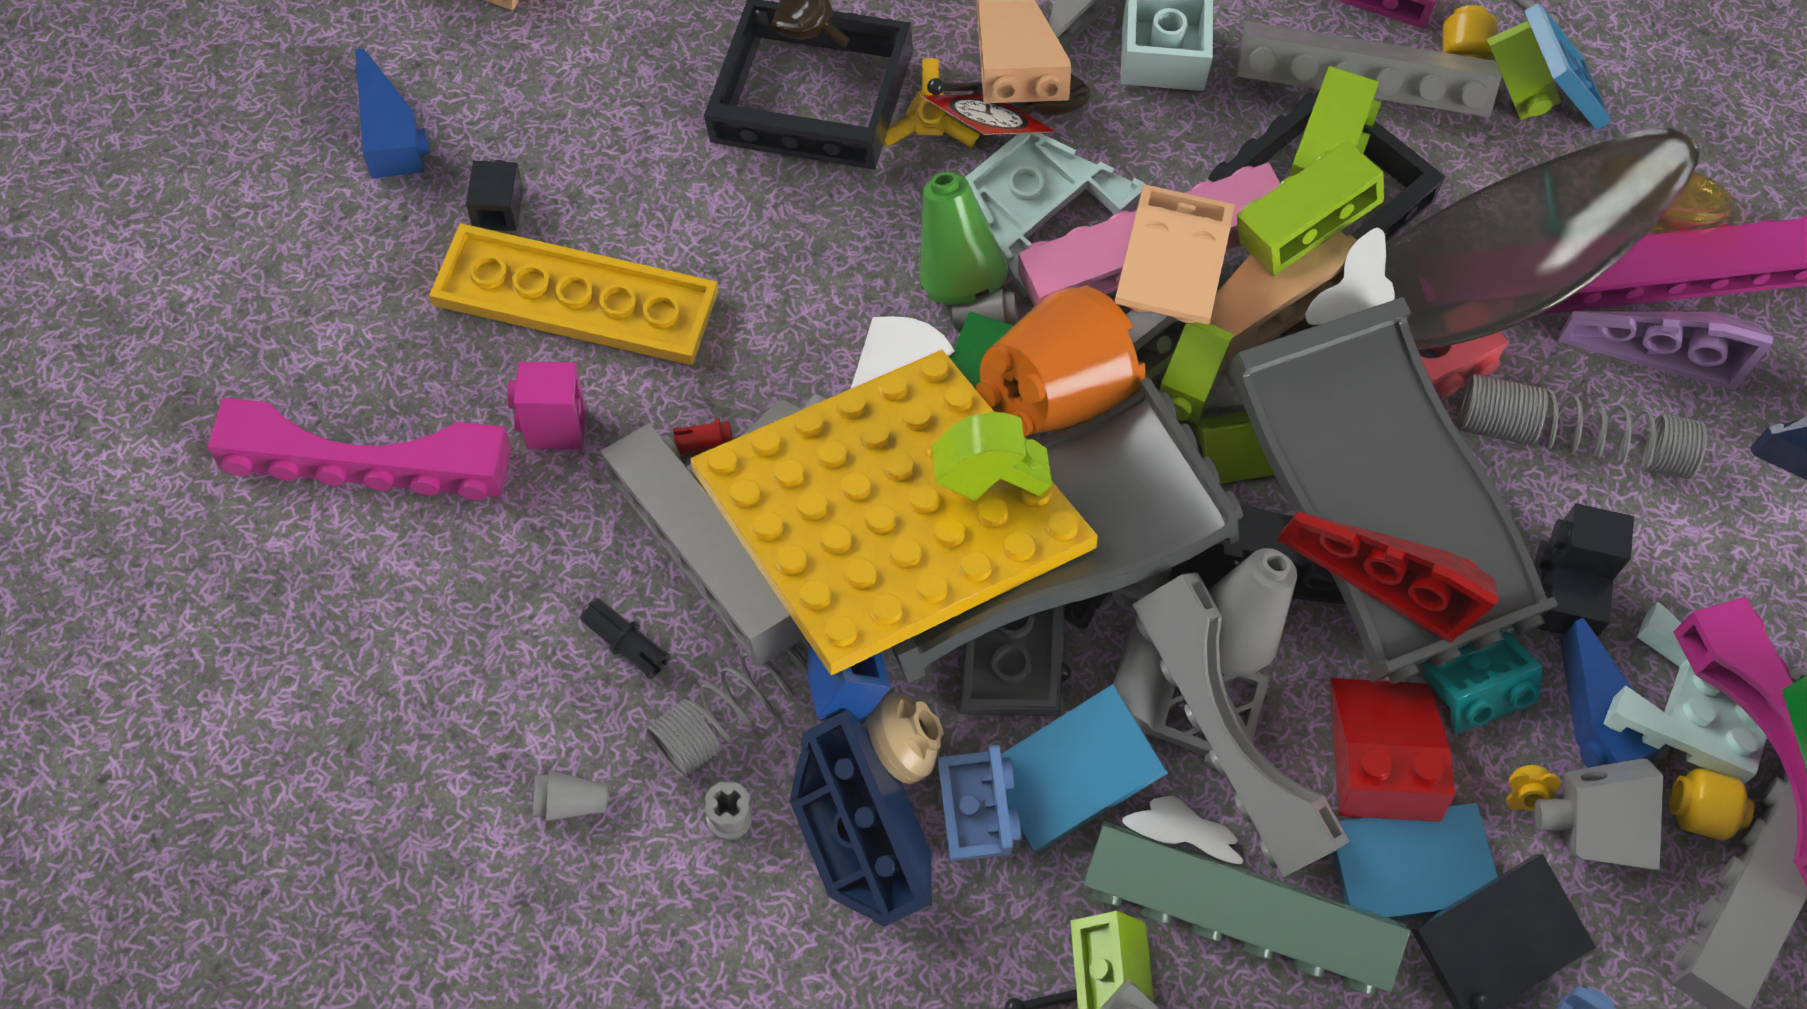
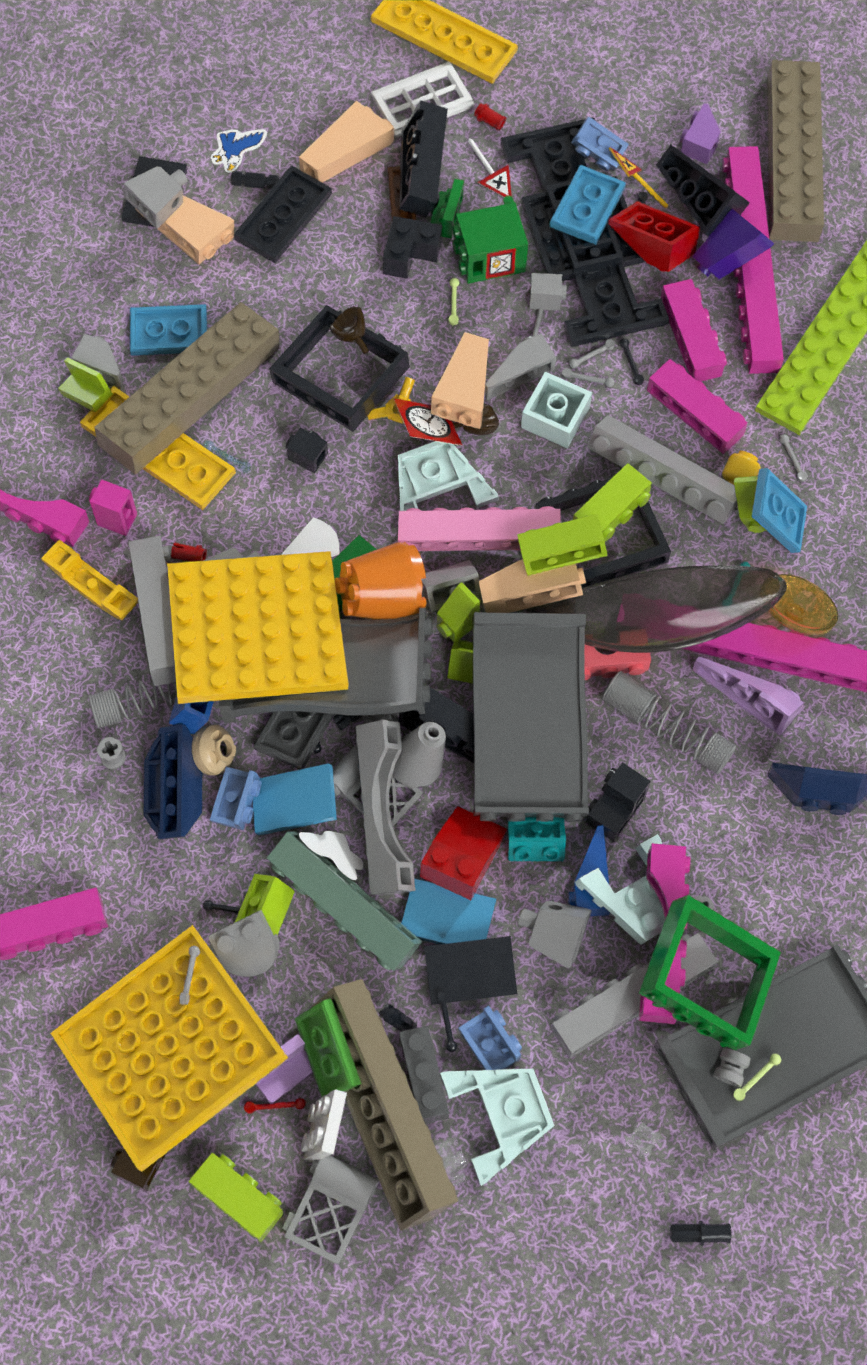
camera: 25 degrees right, 5 degrees up
(388, 124) = (98, 313): blue slope -> none
(413, 235) = (85, 386): none -> lime panel
(416, 195) = (97, 355): none -> light grey slope
(494, 195) = (137, 372): black brick -> none
(509, 116) = (166, 328): none -> dark azure tile
(557, 543) = (88, 581): none -> yellow slope
(567, 796) = (36, 715): light grey cone -> none
(584, 189) = (187, 388): none -> dark tan brick
(624, 637) = (100, 645): black axle -> none
(729, 277) = (245, 466): none -> clear light blue hinge
(817, 218) = (307, 449): none -> black brick
(936, 86) = (404, 395): black hinge -> none
(957, 243) = (369, 494): bright green cone -> none
(988, 449) = (310, 617): lime brick -> none
(998, 306) = (376, 536): light grey cone -> none
(1175, 255) = (469, 545): light nougat slope -> none
(1362, 284) = (573, 598): white sticker -> none
(1412, 578) = (507, 767): red wedge -> none
(1530, 784) = (529, 900): yellow plate -> none
(1711, 804) = (619, 948): yellow head -> none

